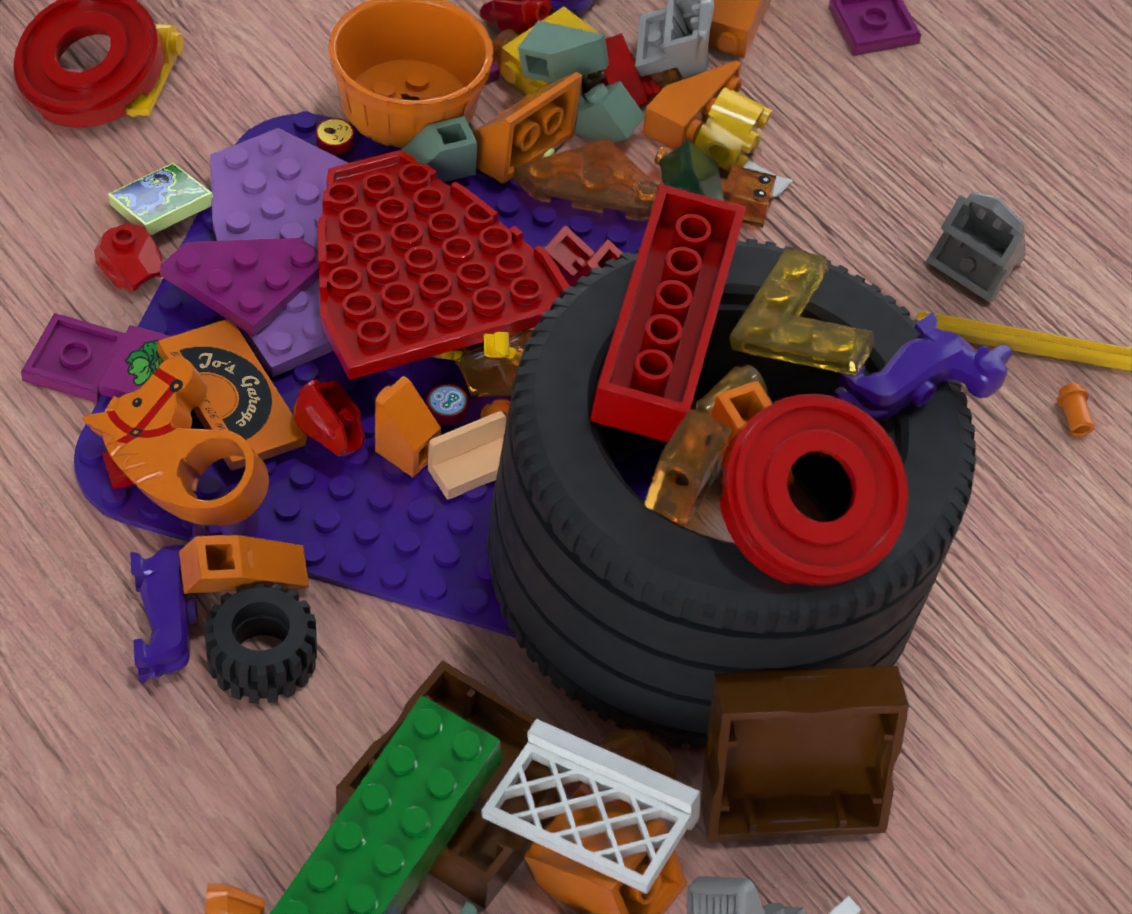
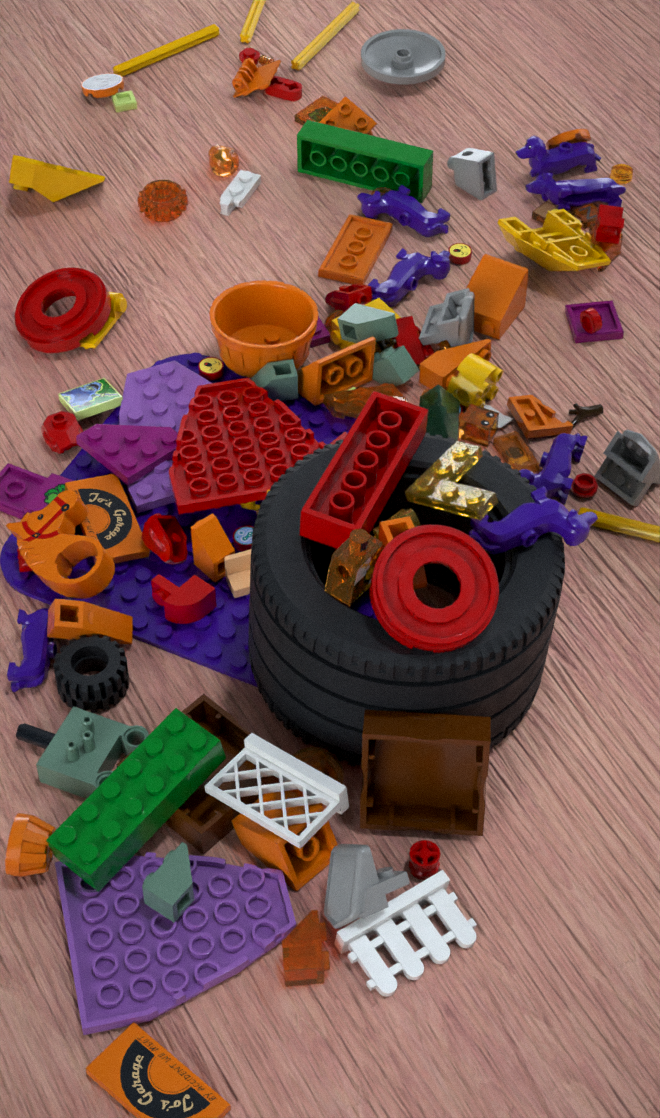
camera: 15 degrees right, 5 degrees down
(276, 770) = (81, 750): none -> sand green piece
(376, 518) = (184, 603): none -> red brick
(806, 231) = (515, 452): none -> clear orange tile
(818, 870) = (429, 854): none -> red wheel
(825, 177) = (536, 418): none -> orange wing
(874, 245) = (557, 466): none -> dark purple animal
(876, 21) = (590, 320): none -> red tile
(890, 163) = (583, 412): none -> dark brown bar
(915, 277) = (584, 485): none -> red plate

